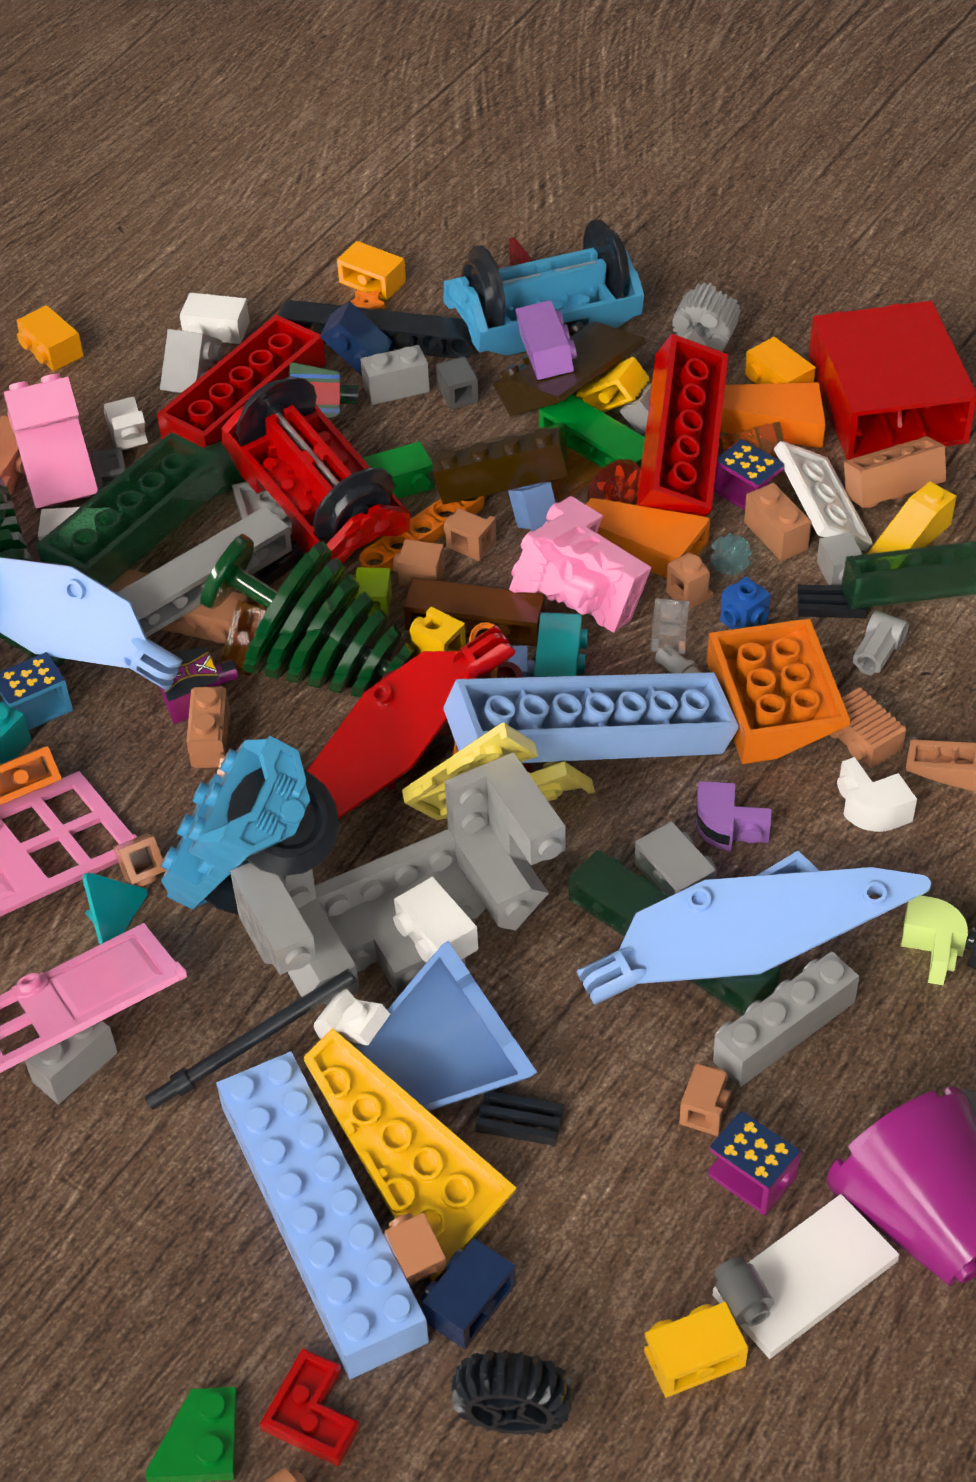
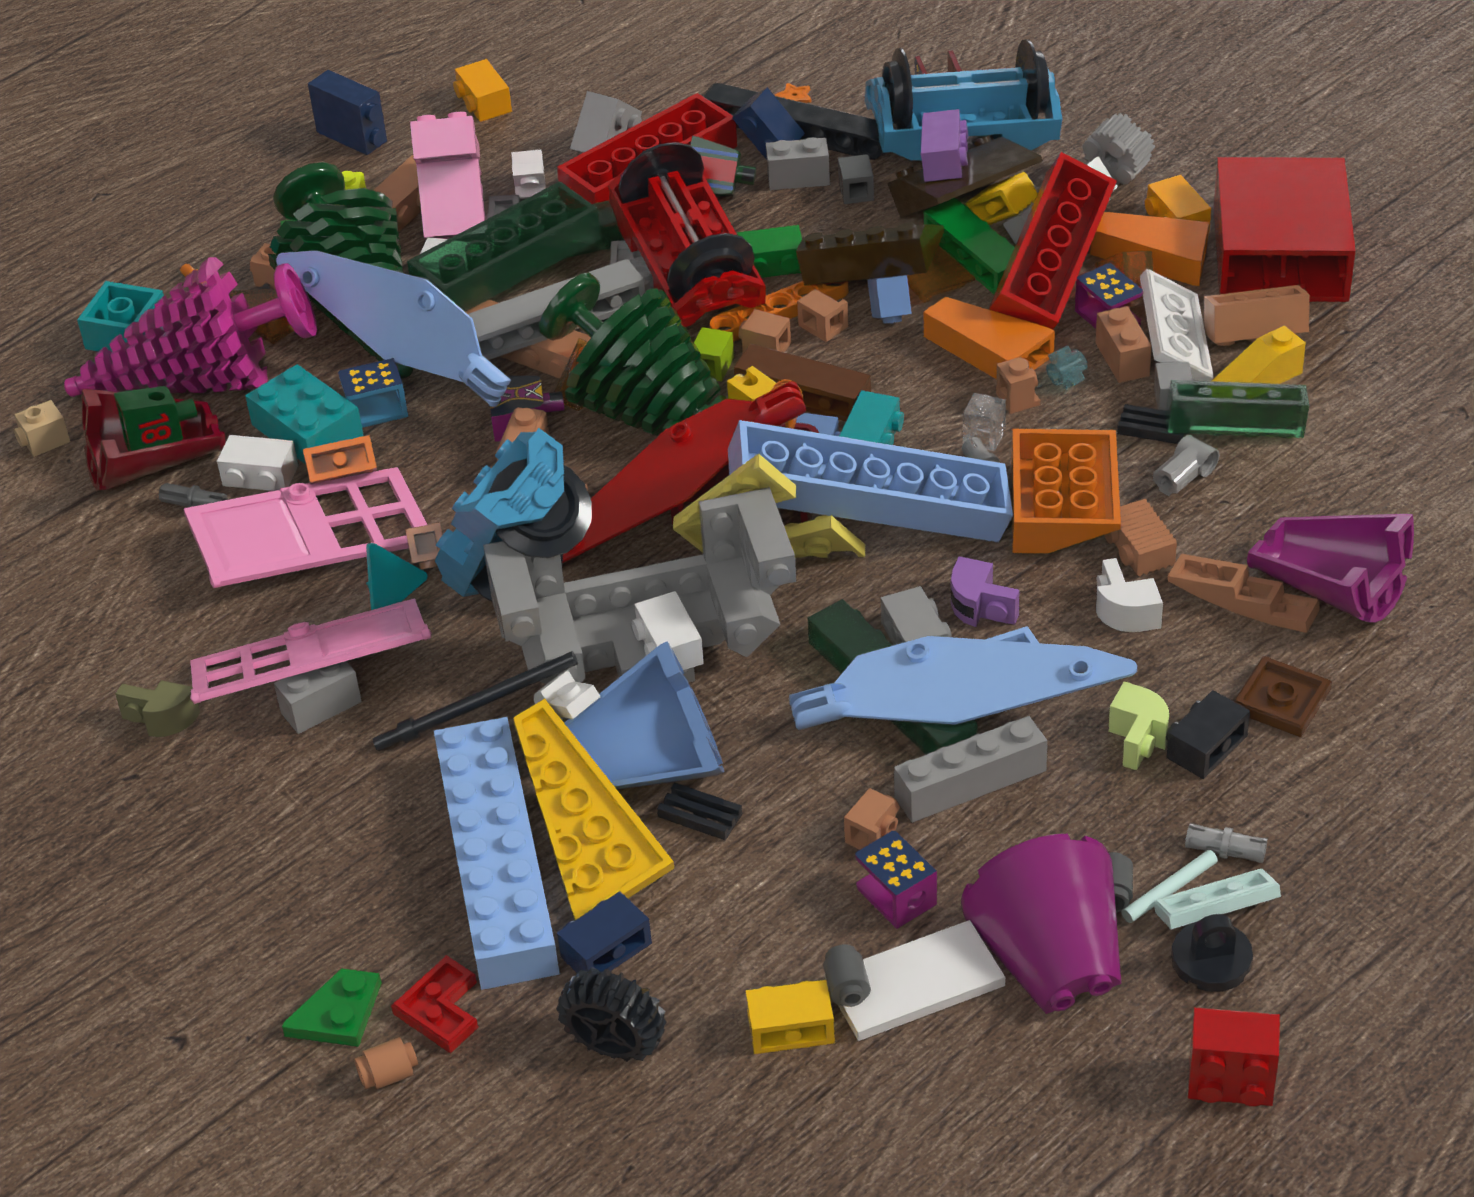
camera: 15 degrees right, 5 degrees down
(216, 316) = (644, 89): white brick -> none
(371, 270) = (809, 65): light orange brick -> none
(415, 1247) = (564, 890): nougat brick -> none
(580, 566) = (909, 353): bright pink brick -> none
(616, 482) = (978, 287): clear red dish -> none
(745, 605) = (1063, 410): blue brick -> none

